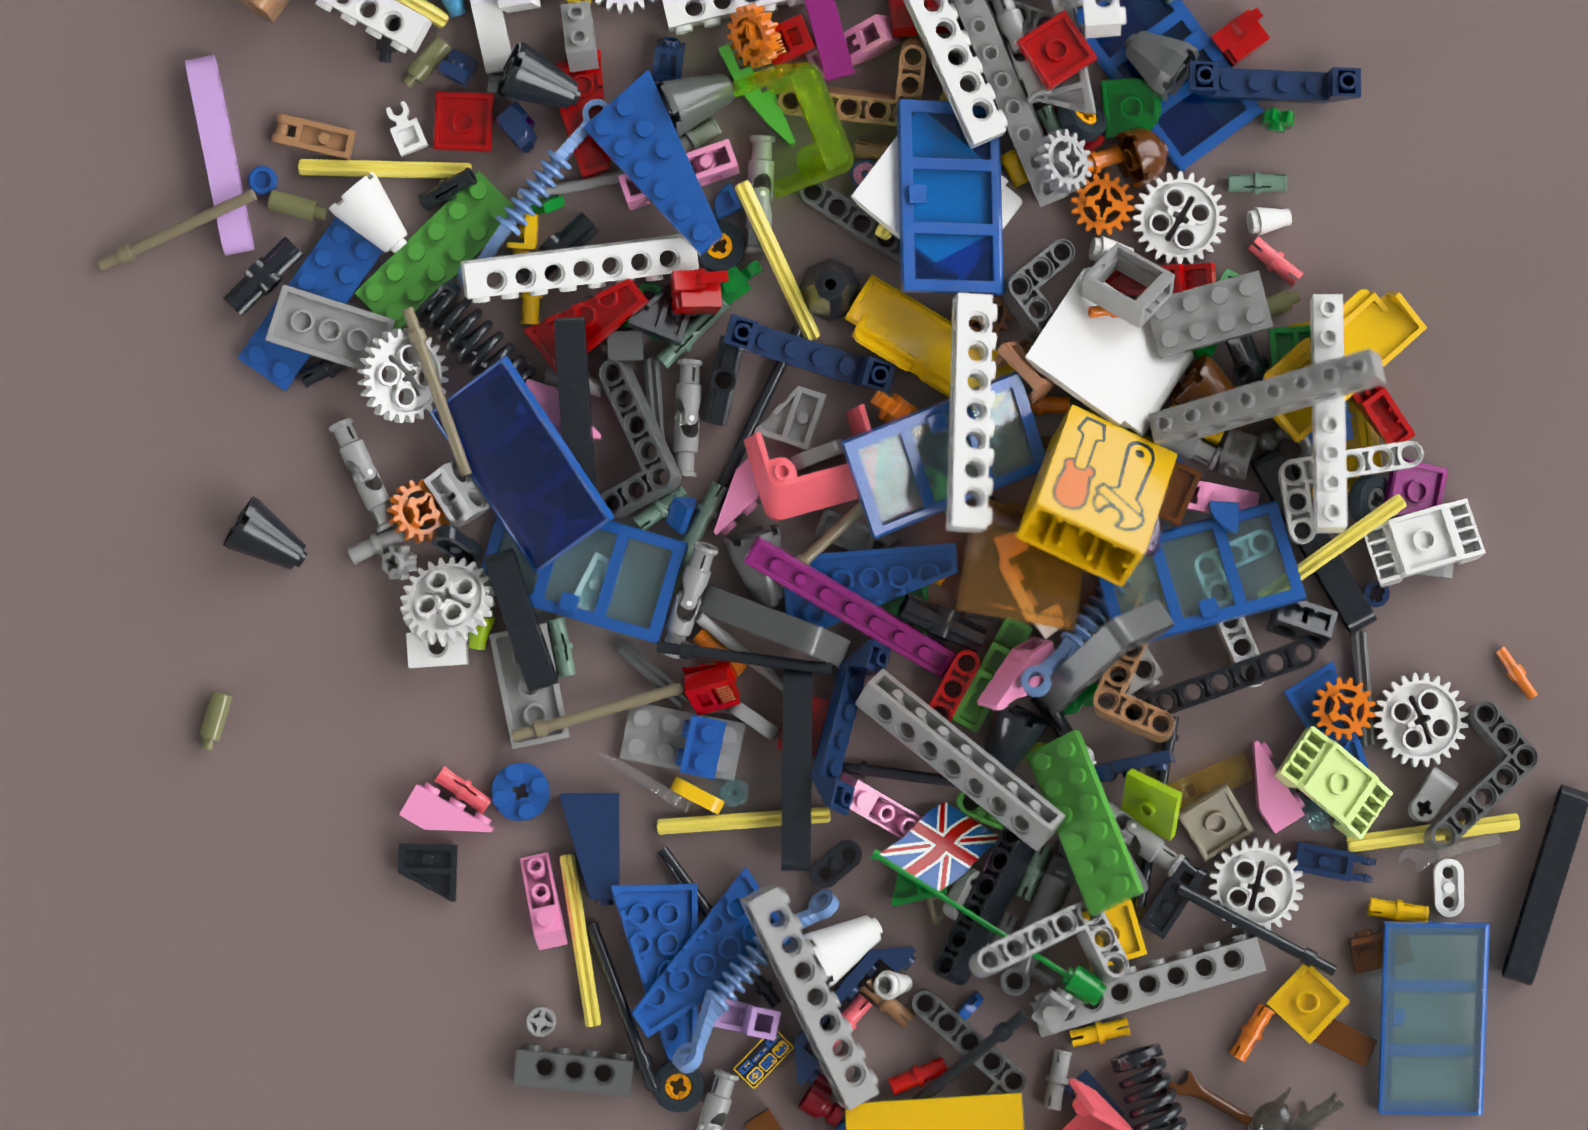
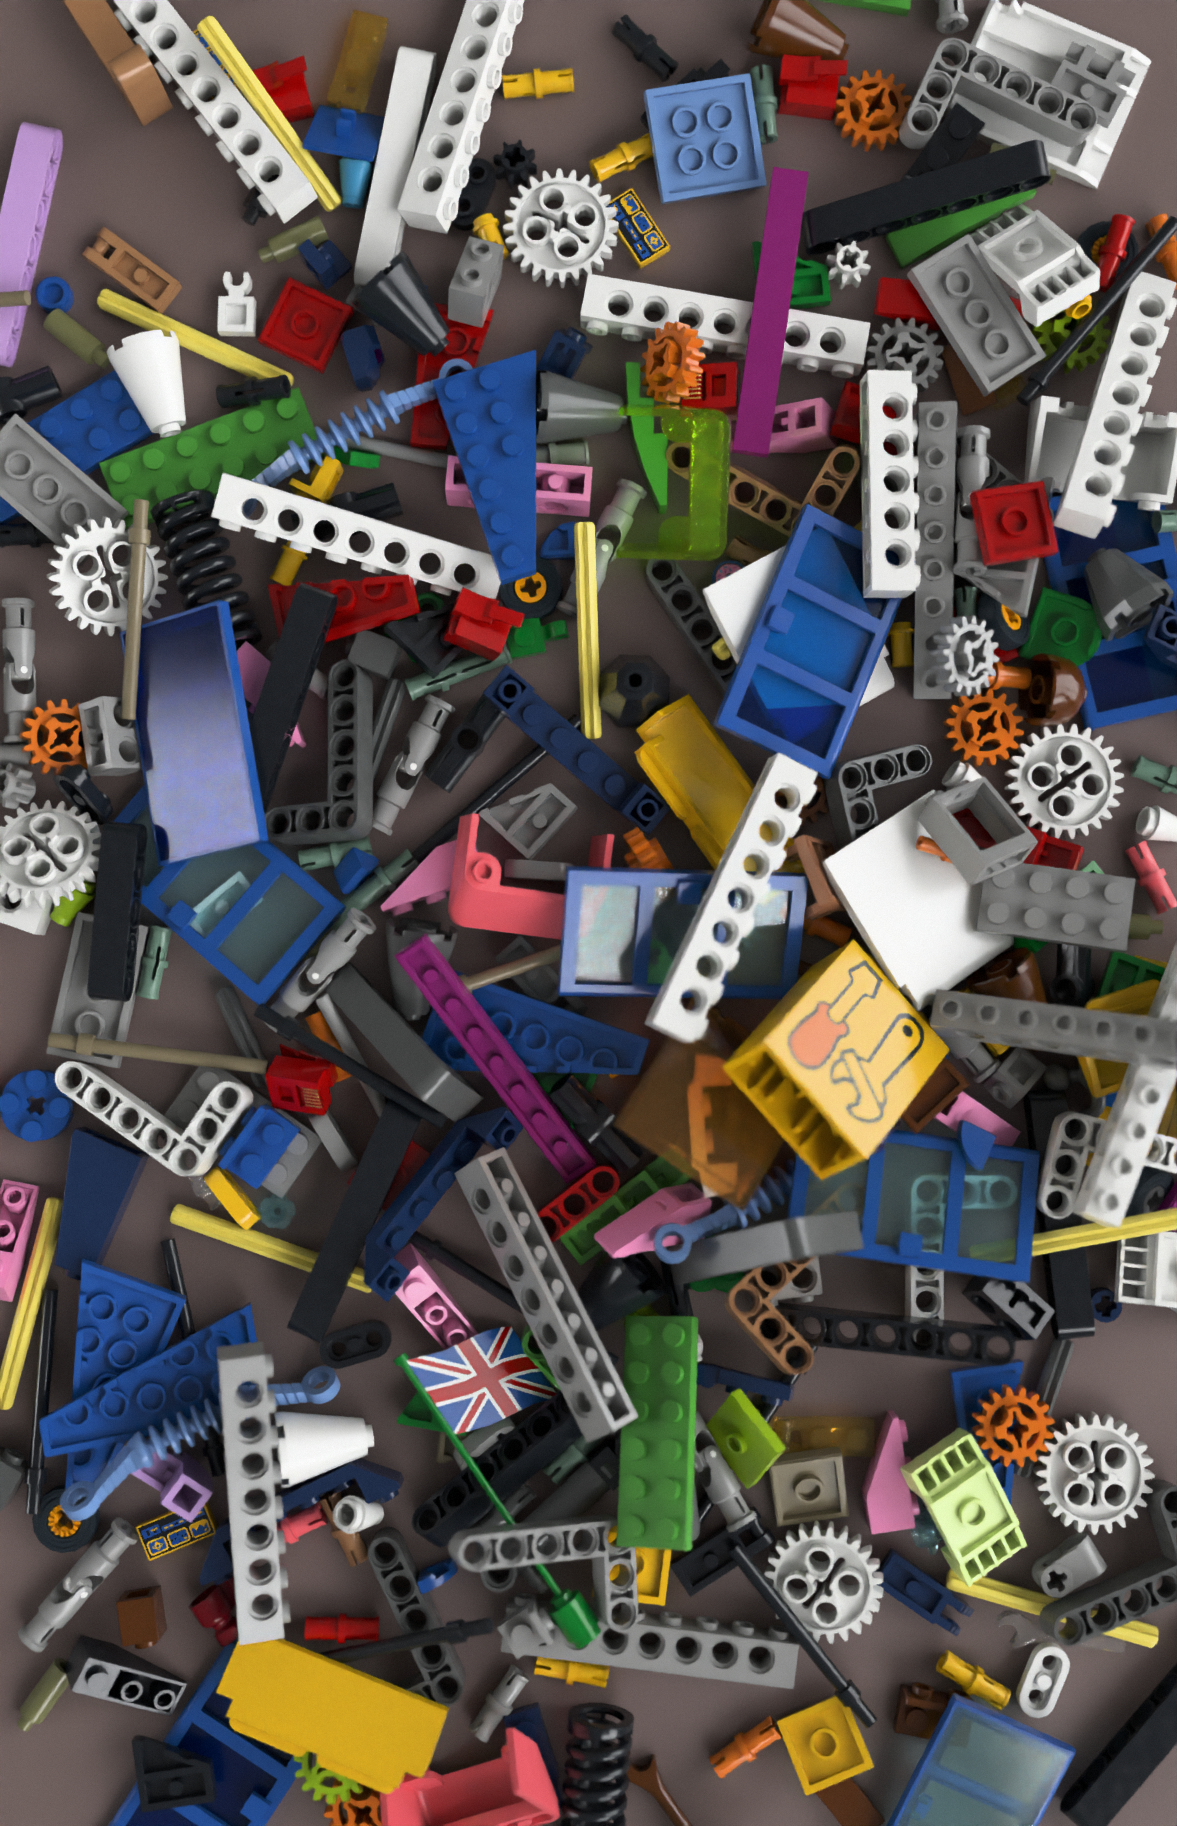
camera: 30 degrees right, 0 degrees up
(615, 765) = (152, 1122): none -> white beam

